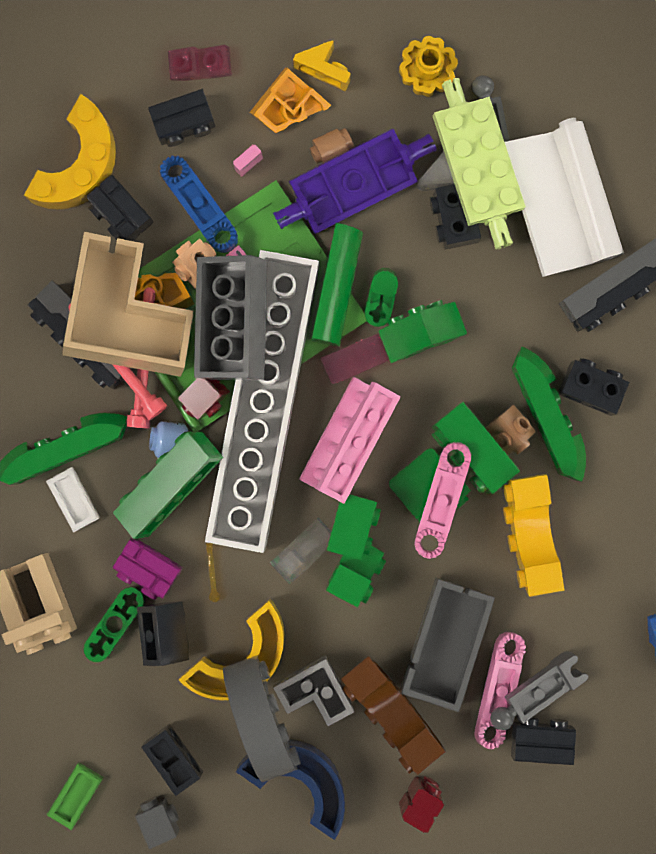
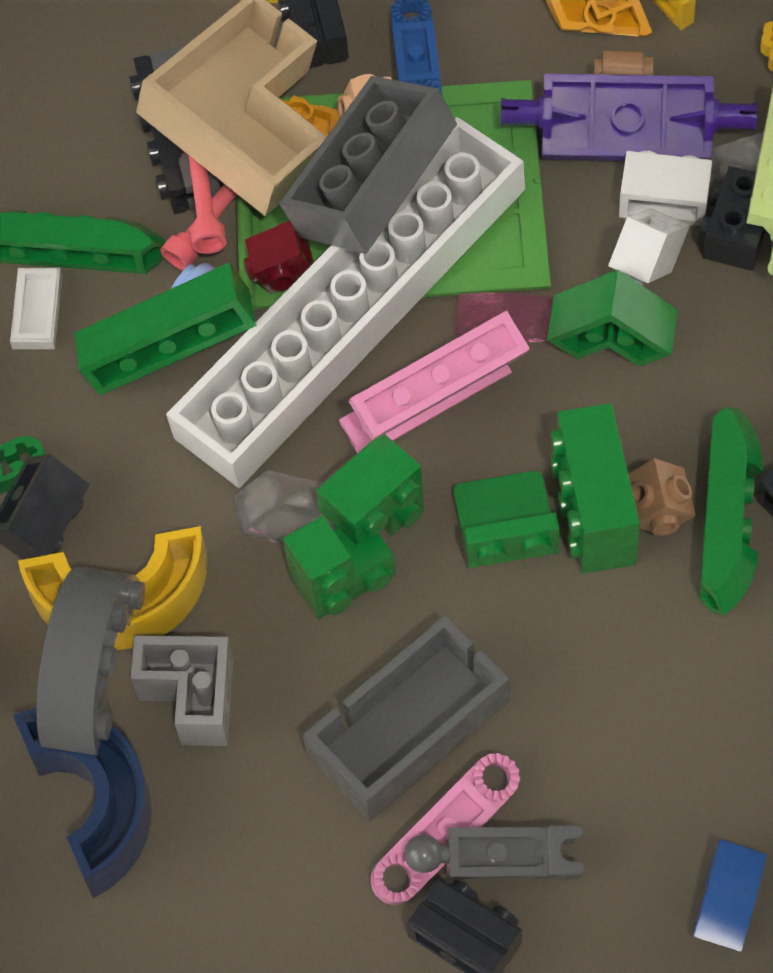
camera: 35 degrees right, 25 degrees down
(147, 568) = (72, 425): magenta brick -> none
(214, 596) = (135, 509): clear yellow hinge -> none
(247, 160) = (508, 39): bright pink tile -> none
(337, 285) = (531, 217): green brick -> none
(376, 310) = (583, 261): green piece -> none
(395, 714) = (274, 755): reddish brown brick -> none
(401, 217) = (666, 184): none -> white piece
(419, 272) = (649, 245): none -> white brick
(421, 803) = (238, 906): dark red brick -> none
(442, 500) = (510, 509): bright pink plate -> none
(531, 534) = (621, 621): yellow brick -> none

